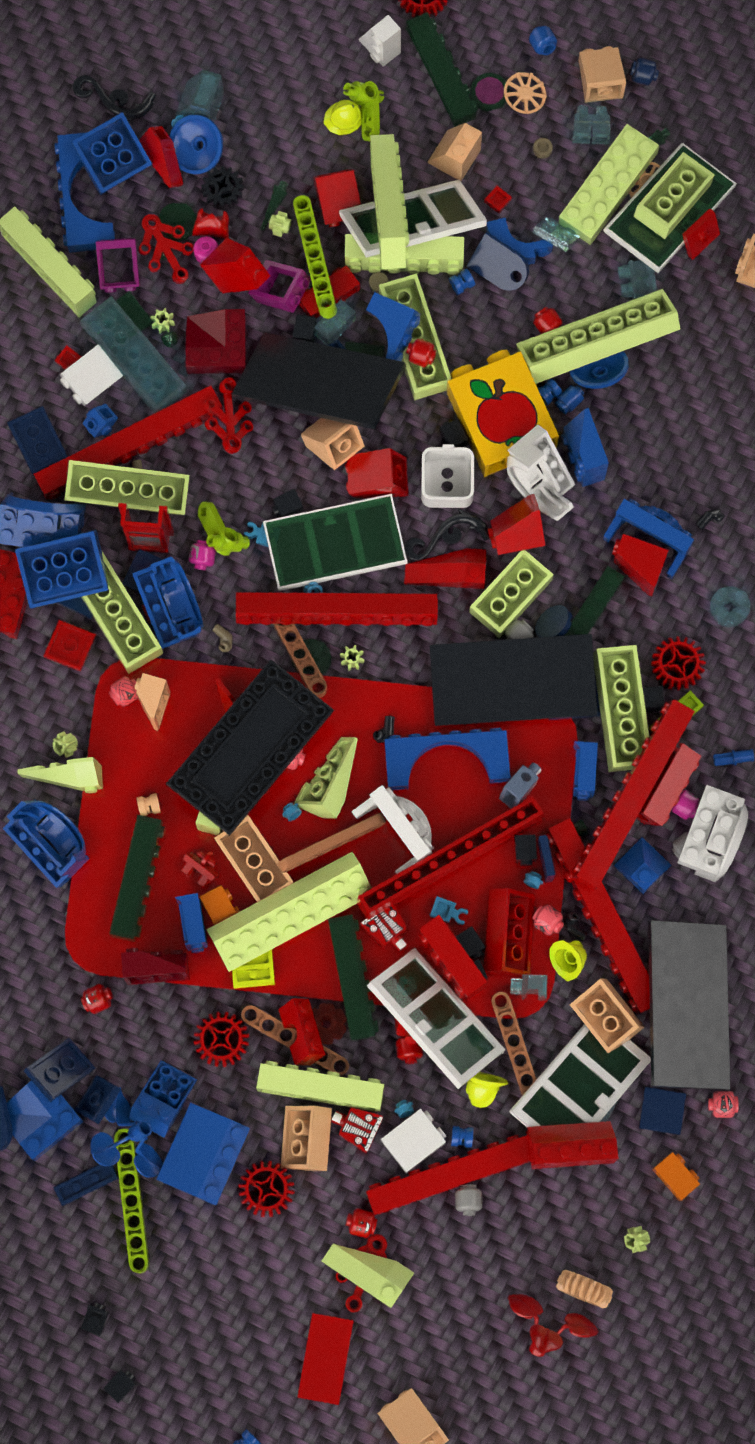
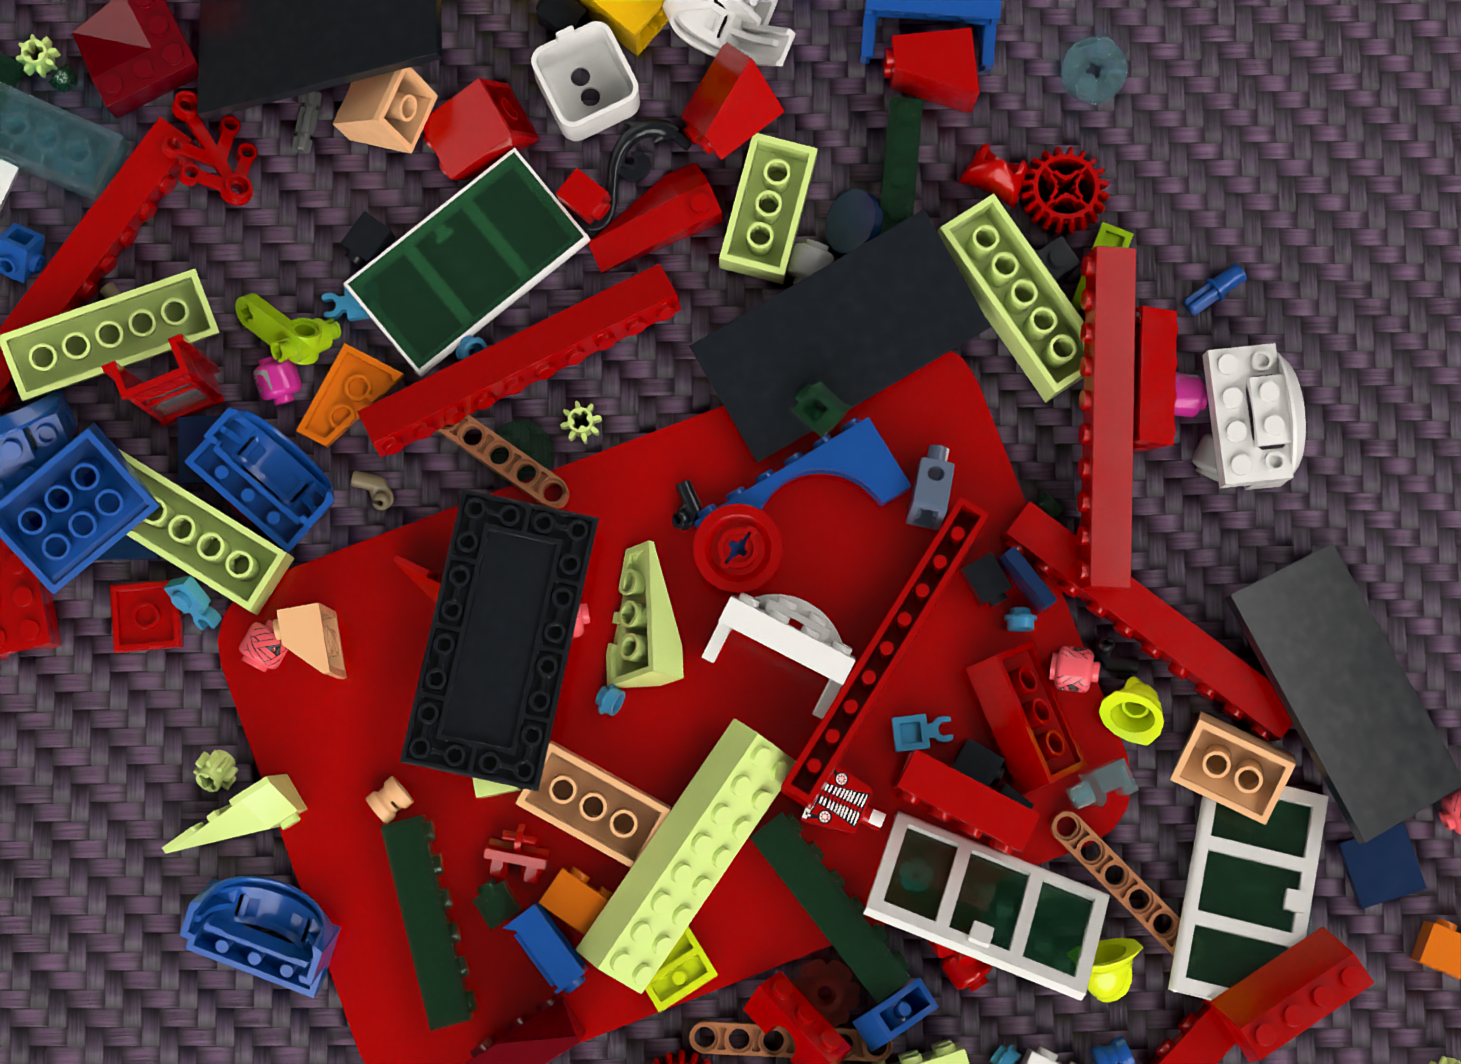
camera: 30 degrees left, 5 degrees up
(98, 647) = (192, 599): none -> dark azure plate
(177, 885) = (497, 902): none -> clear green brick
(238, 577) = (348, 387): none -> orange wing
(286, 426) = (306, 122): none -> dark grey axle
(331, 843) = (695, 720): nougat beam -> none
(357, 1051) = (895, 1014): none -> blue brick
(387, 757) = (733, 524): none -> red gear
(415, 538) = (584, 197): none -> red brick
(475, 710) = (820, 421): none -> clear green brick
(585, 770) = (1014, 417): blue window -> none
(642, 865) = (1167, 516): blue slope -> none
(644, 636) = (995, 175): none -> red hair

